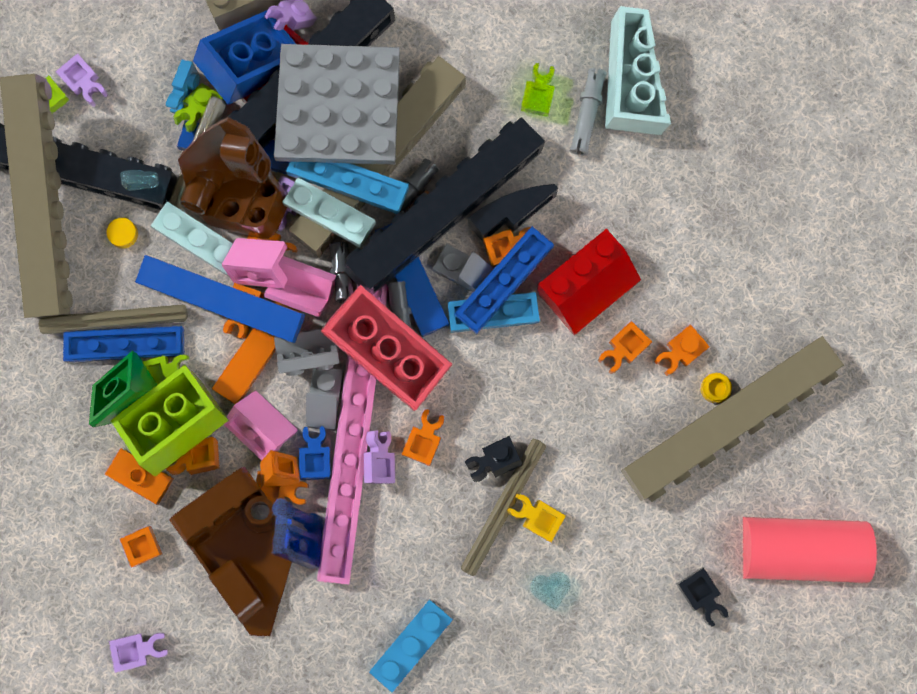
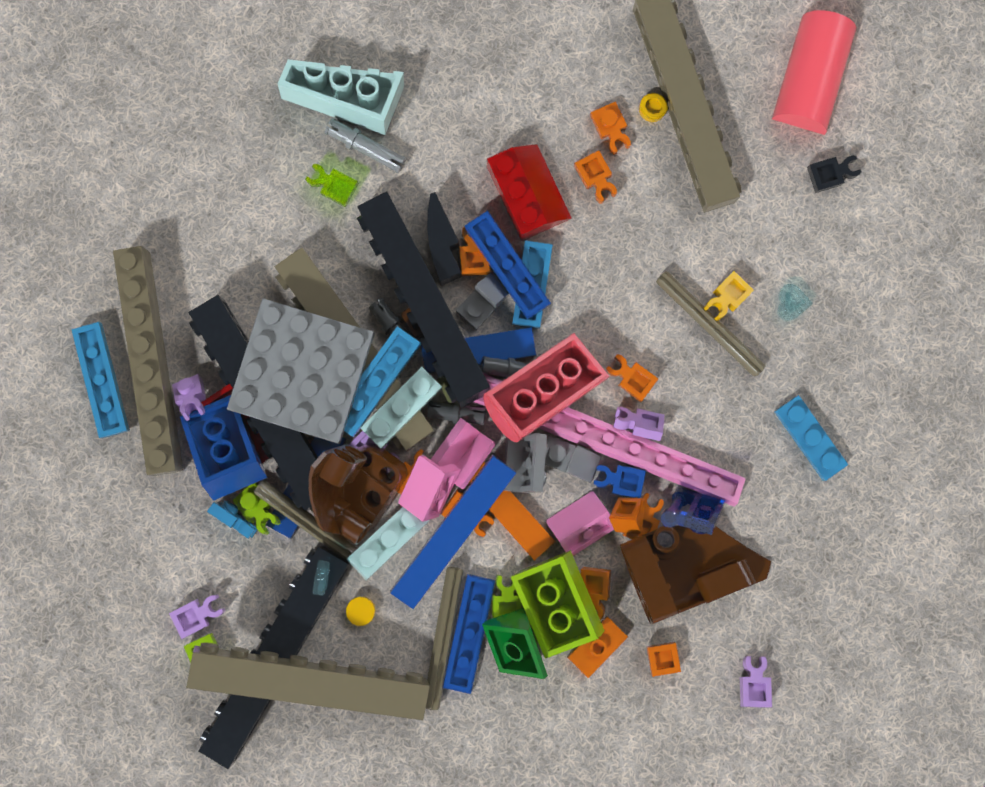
camera: 75 degrees left, 5 degrees up
(499, 458) = (666, 315): black plate -> none

